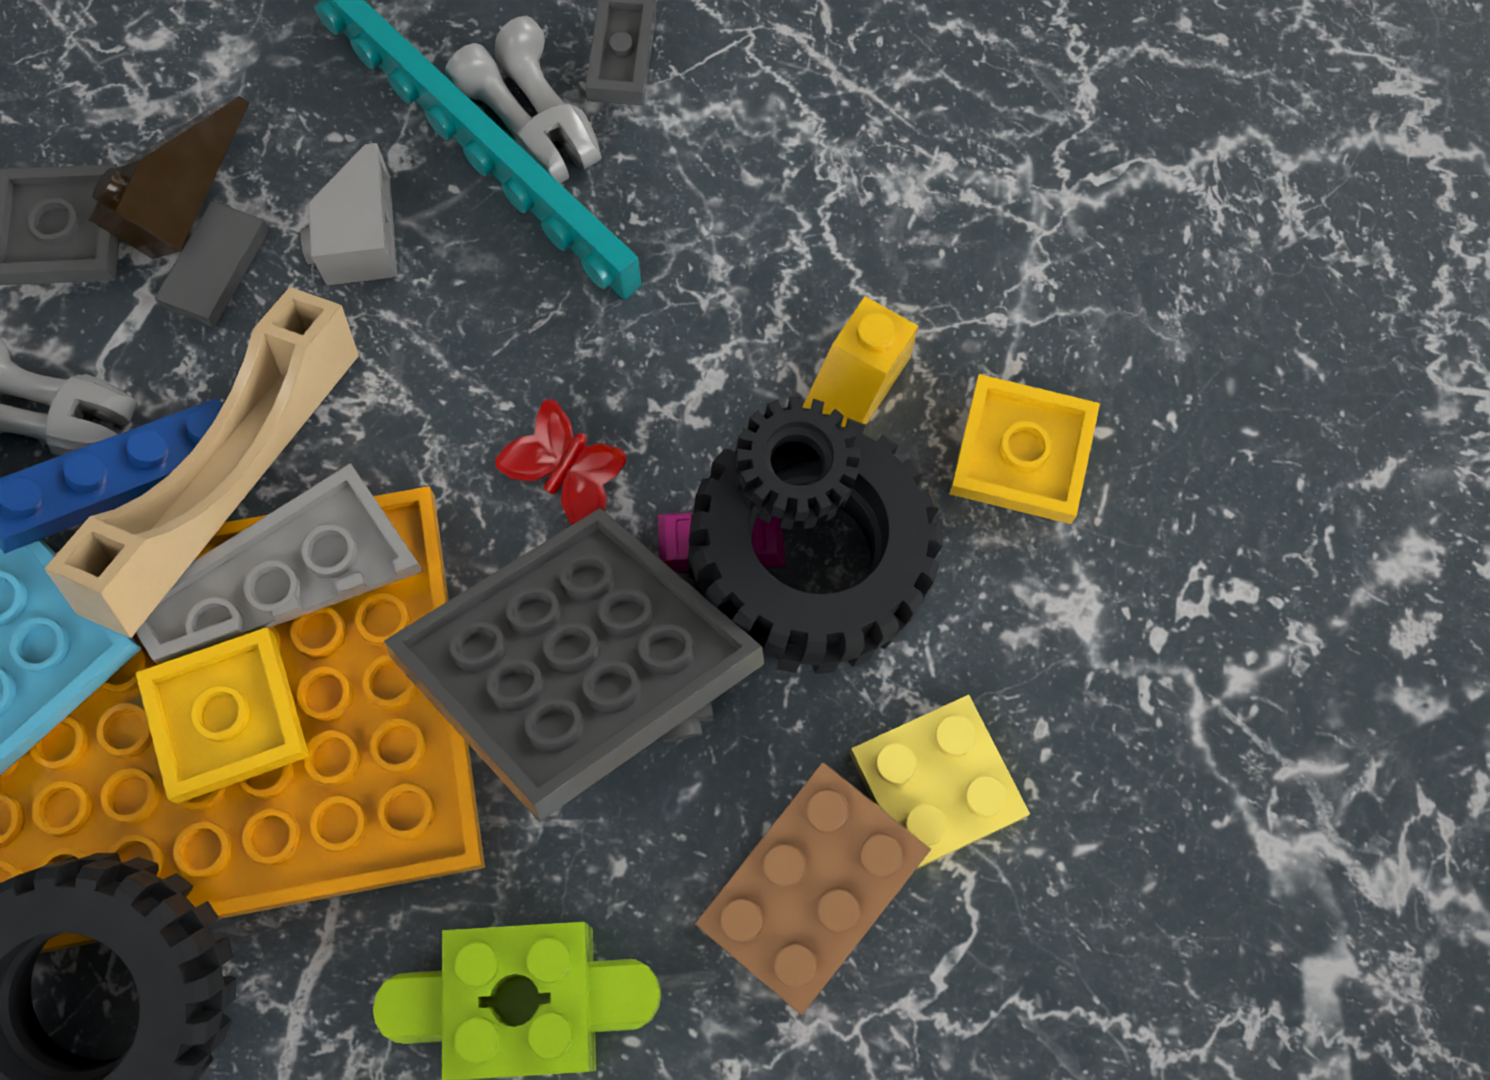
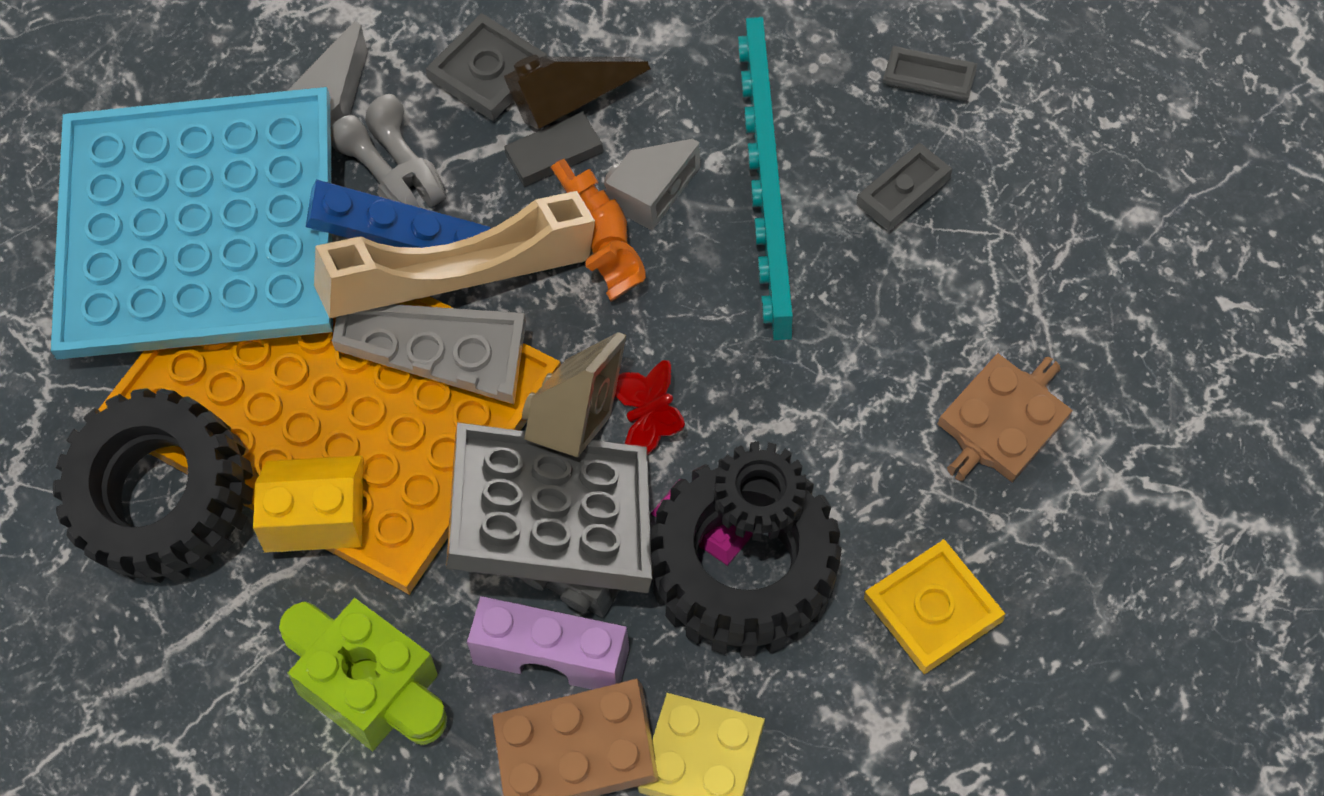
camera: 45 degrees right, 10 degrees down
(221, 715) = (342, 398): yellow plate -> none
(288, 863) = (309, 504): none -> yellow slope
(382, 329) = (611, 253): none -> orange piece
(486, 514) = (575, 398): none -> dark tan slope
(518, 54) = (799, 143): light grey piece -> none
(690, 797) = (515, 634): none -> lavender arch
(863, 362) = (872, 482): yellow slope -> none
(920, 212) = (1004, 418): none -> medium nougat plate

